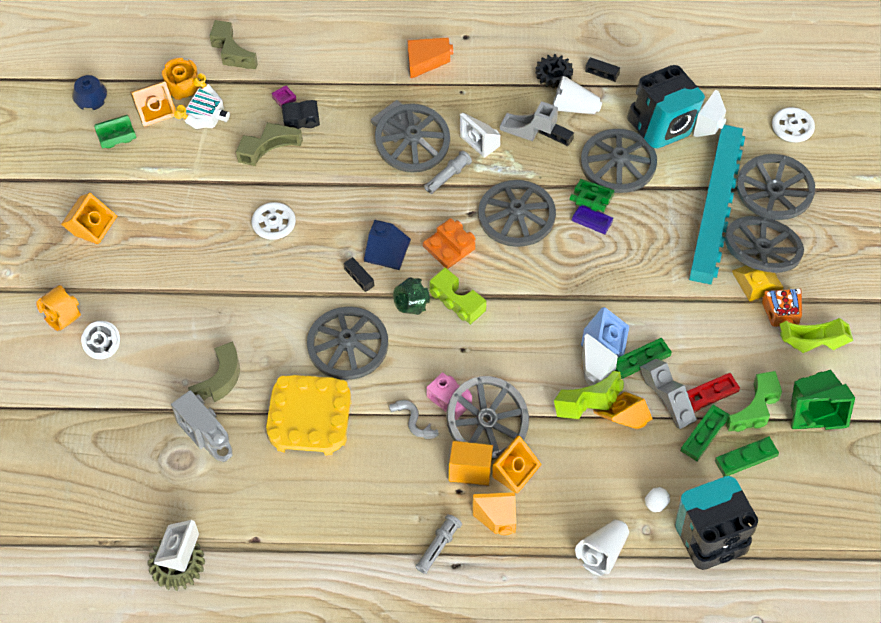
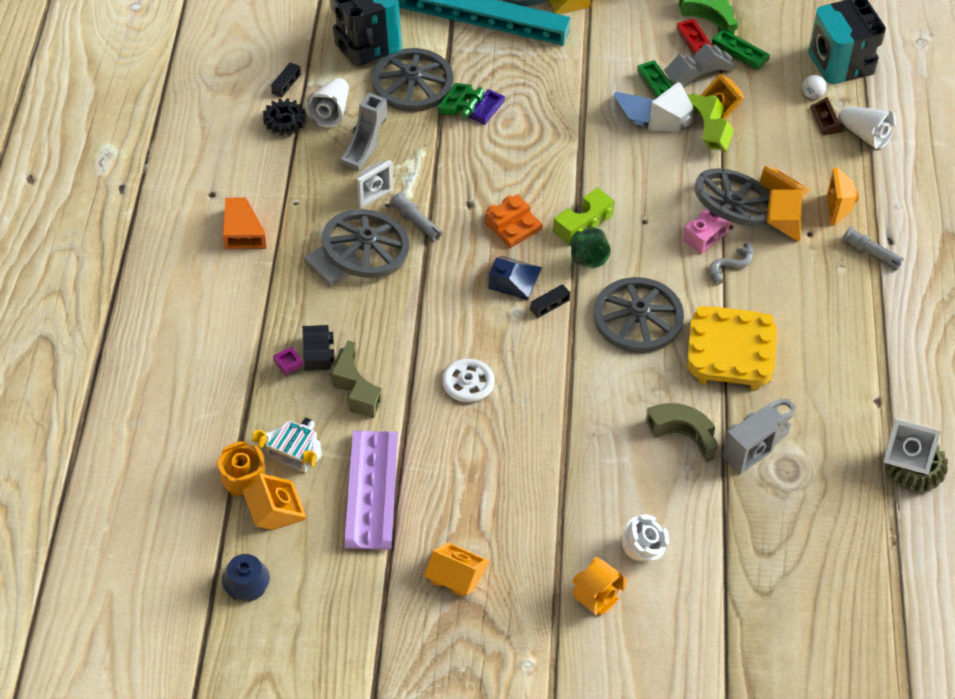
camera: 90 degrees left, 5 degrees down
(115, 131) = (320, 543): bracket -> none
(166, 162) = (371, 490): none -> lavender plate
(231, 54) = (173, 427): olive arch -> none
(517, 211) = (475, 161): dark grey wheel -> none
(628, 512) = (826, 117): none -> reddish brown slope
(746, 456) = (762, 27): green plate -> none

